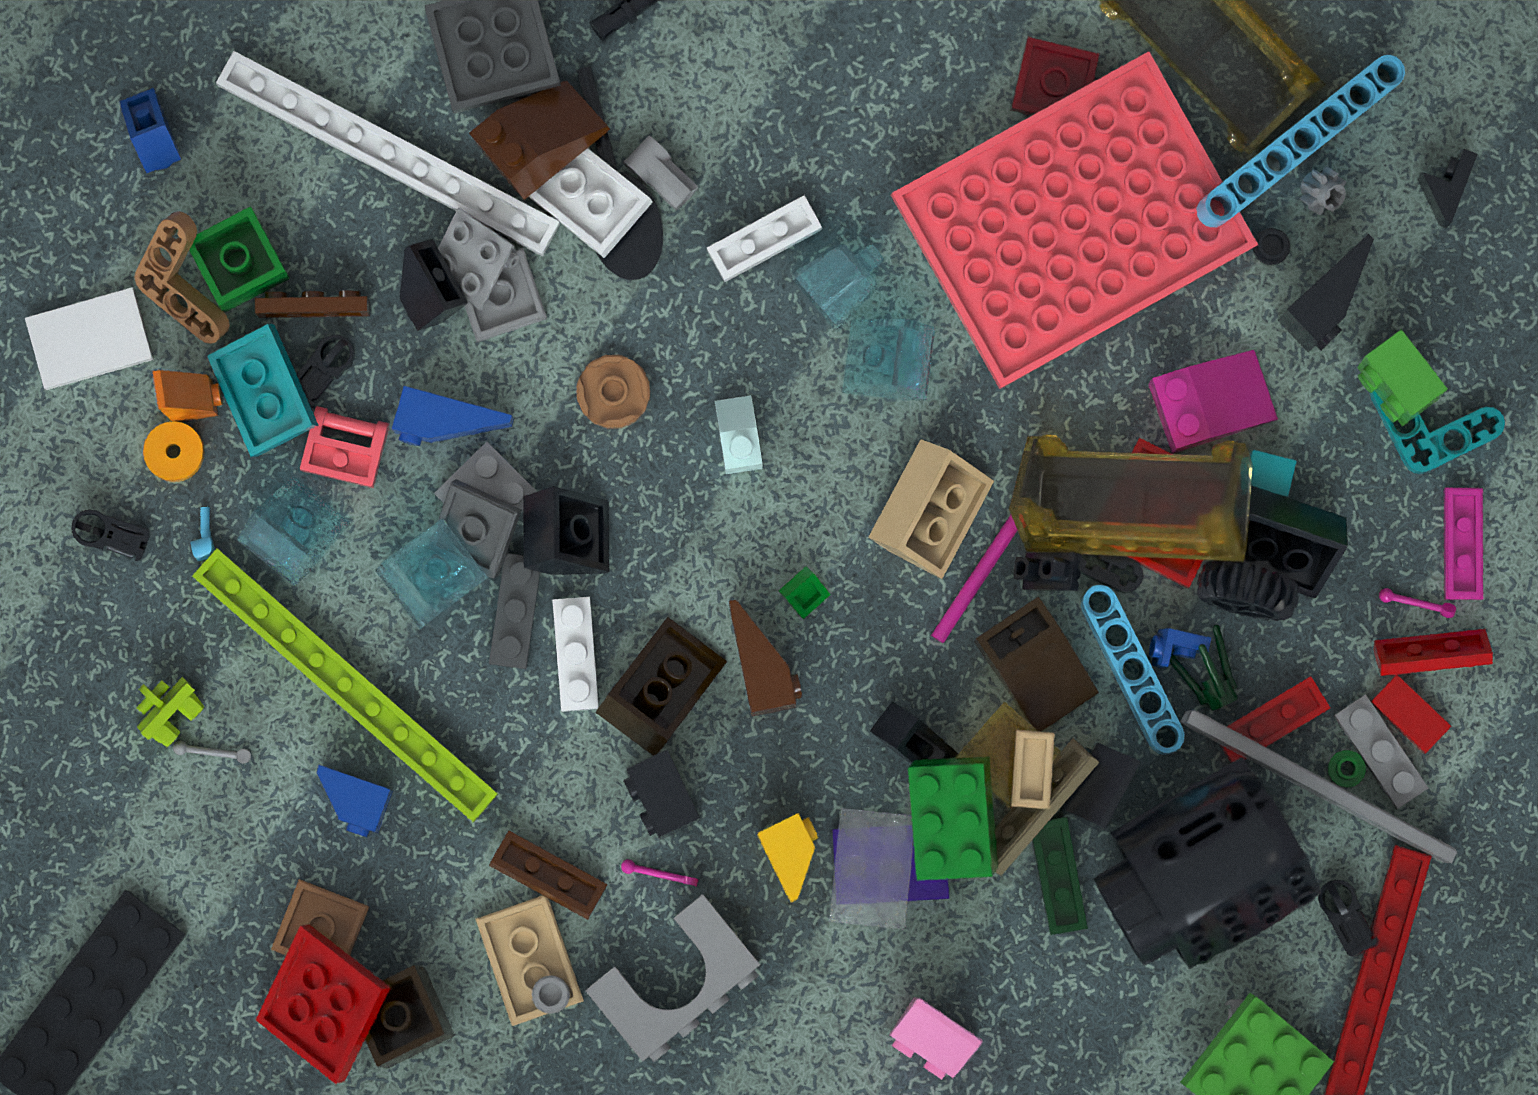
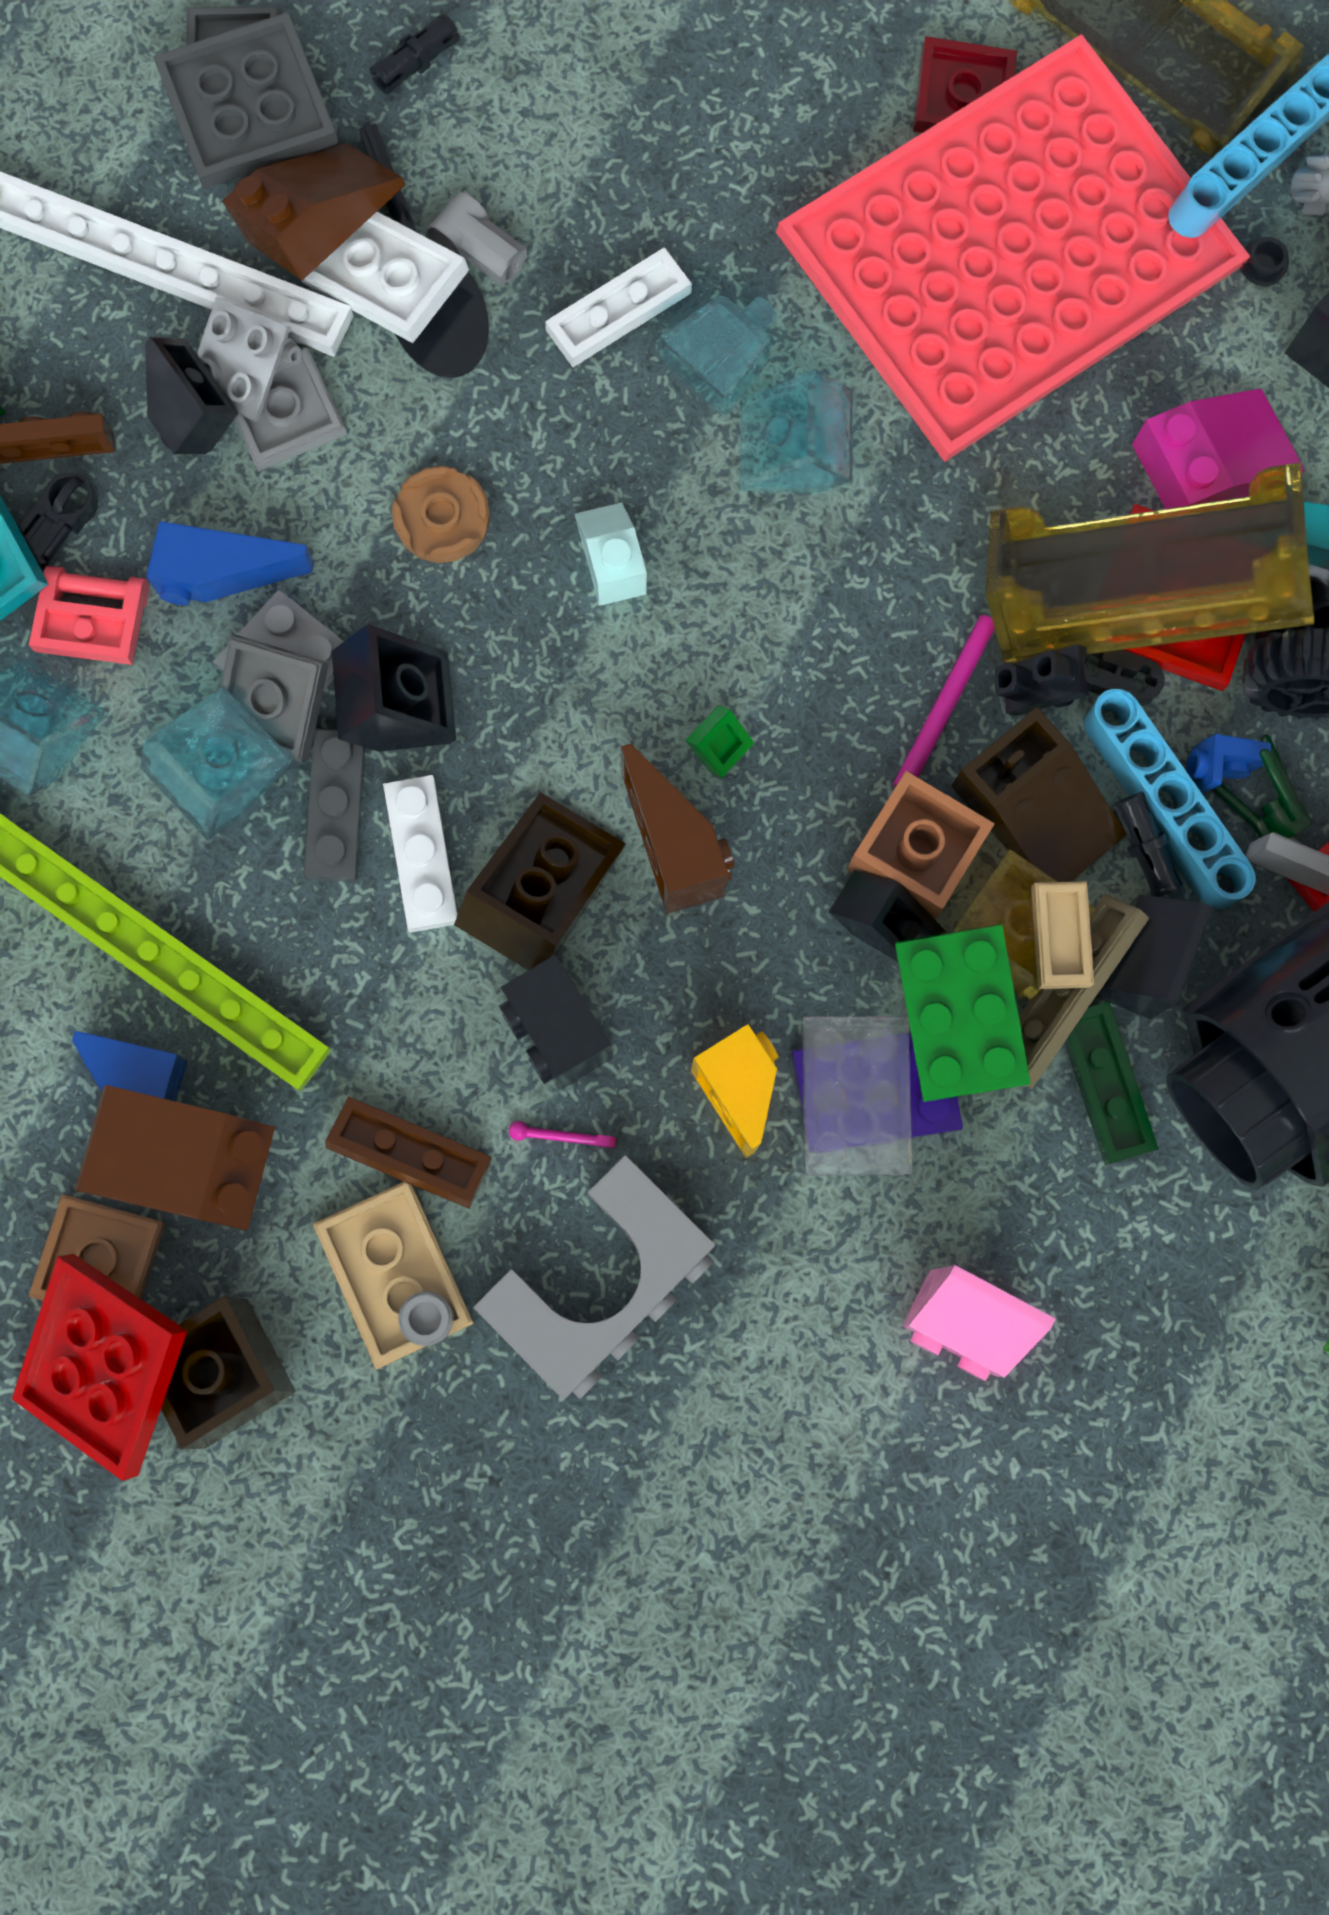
camera: 10 degrees left, 5 degrees down
(386, 864) = (175, 1157): none -> reddish brown slope
(931, 508) = (875, 617): tan slope -> none
(942, 688) = (922, 842): none -> nougat brick
(1112, 703) = (1148, 844): none -> black pin

